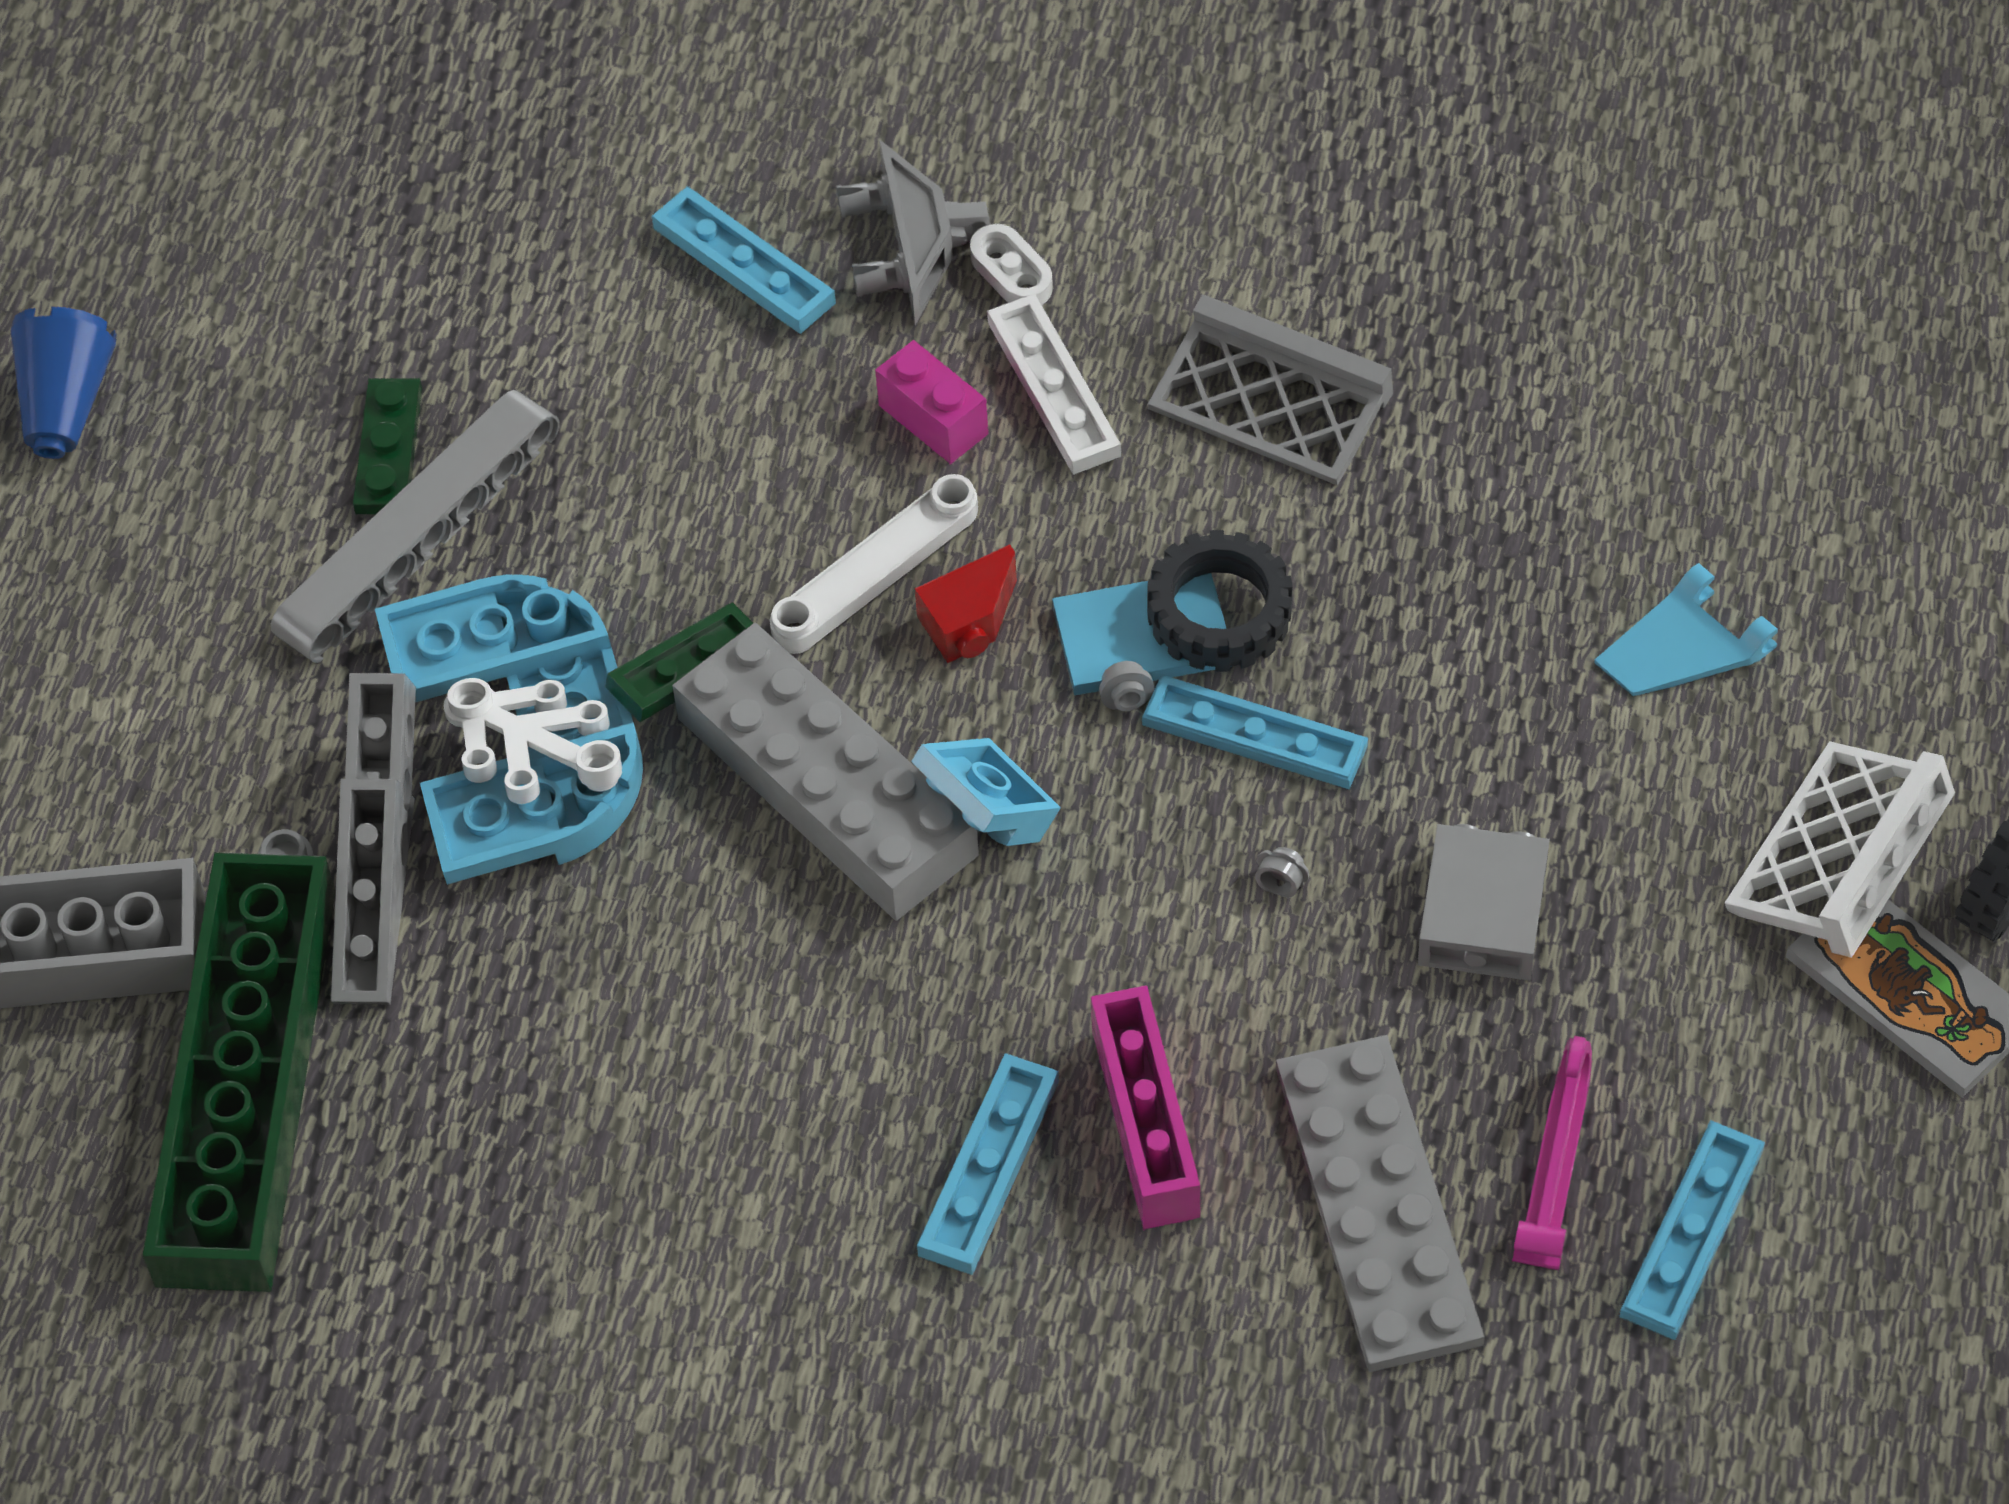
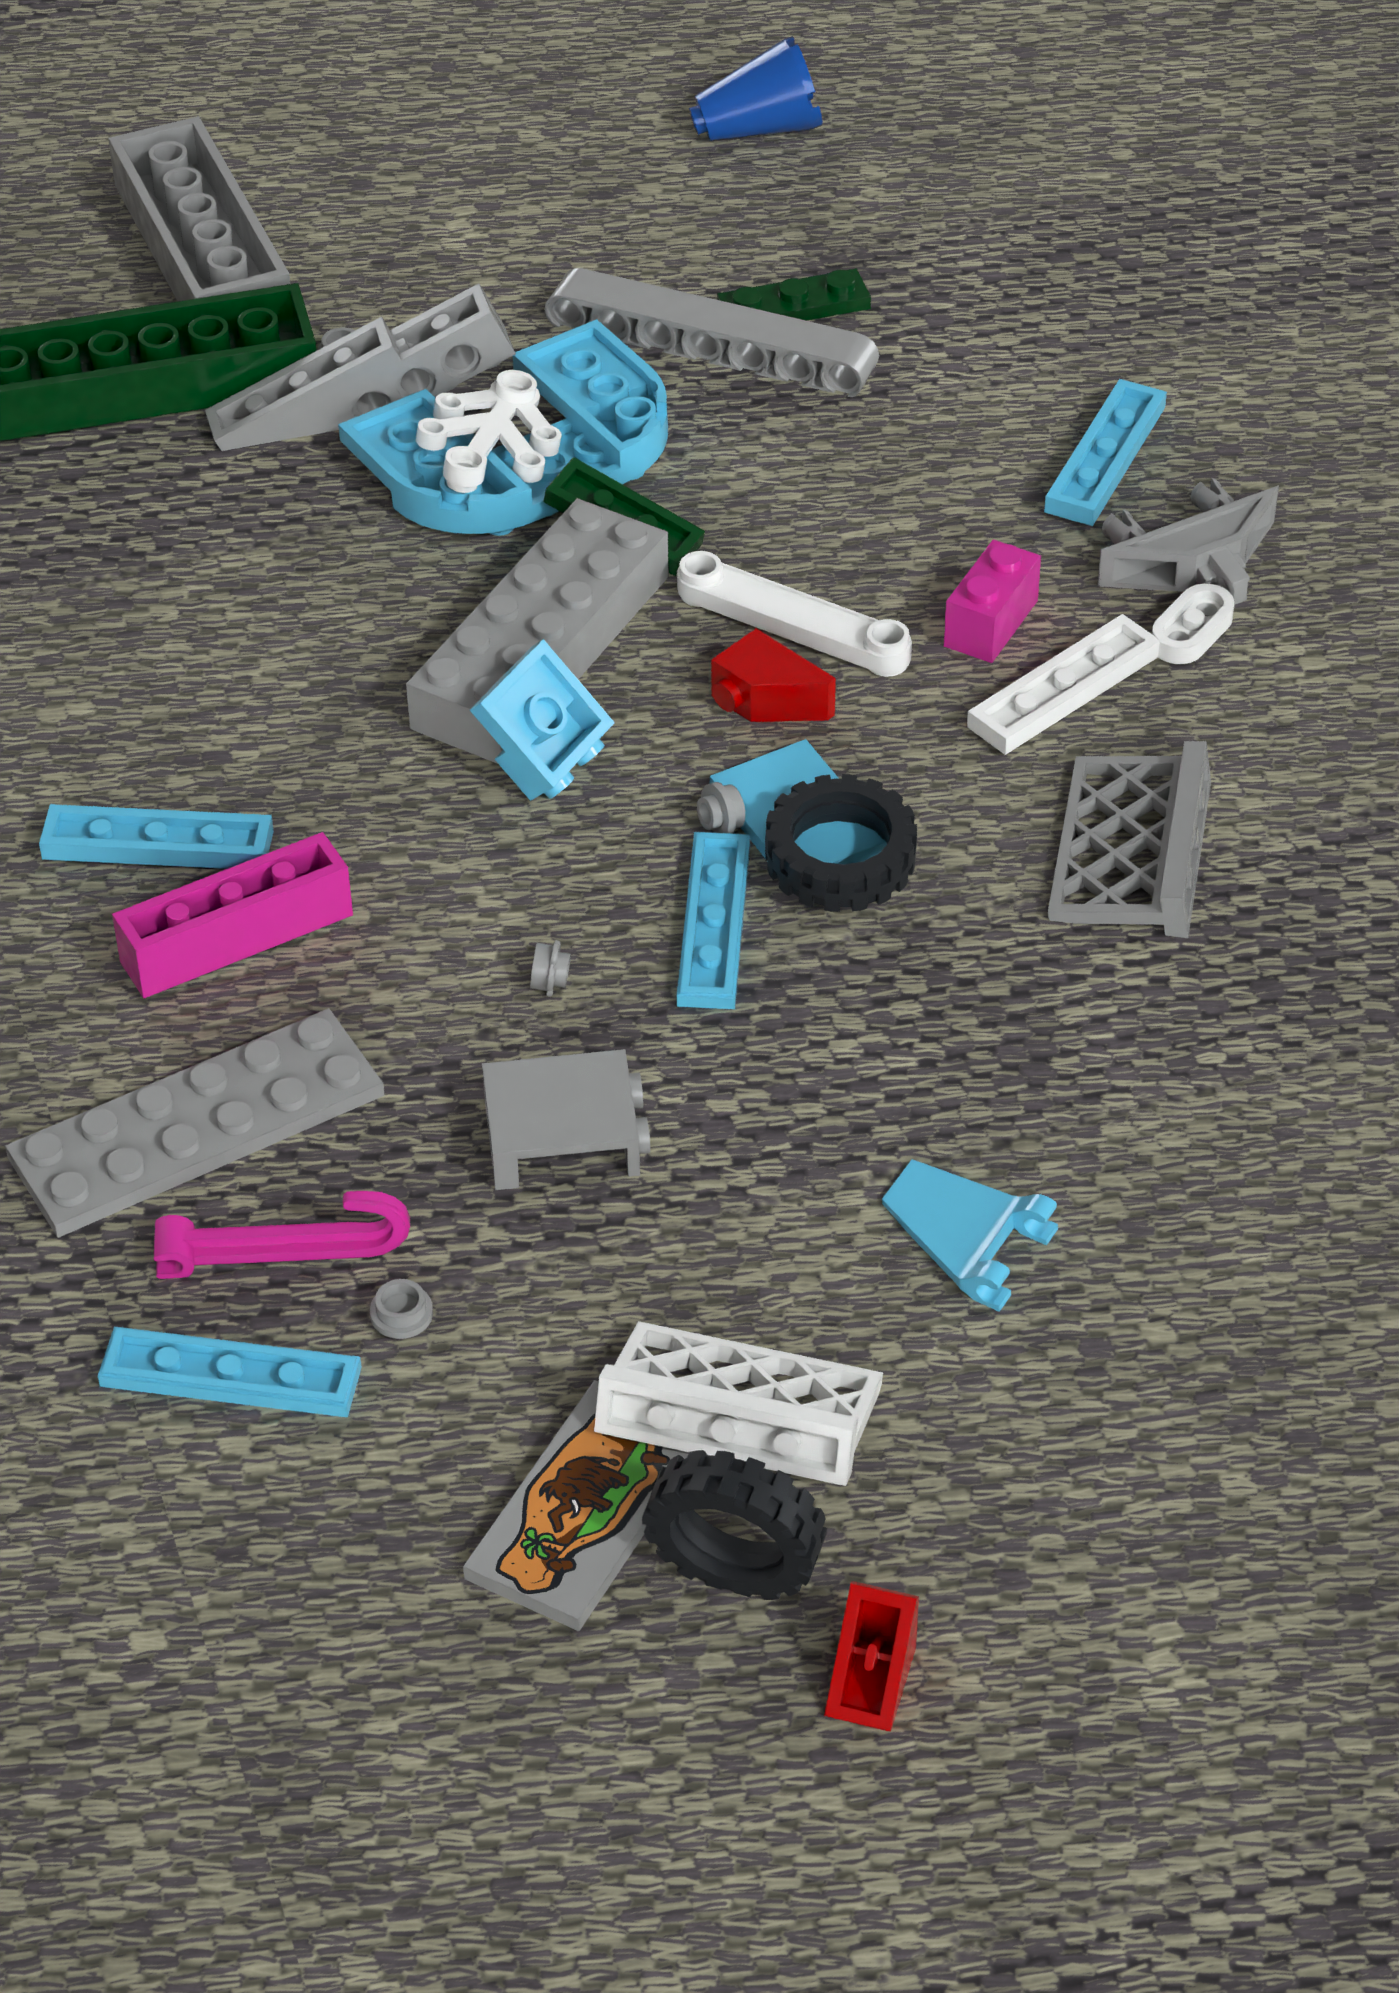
camera: 70 degrees right, 10 degrees down
(1662, 1078) = (401, 1309): none -> light grey plate

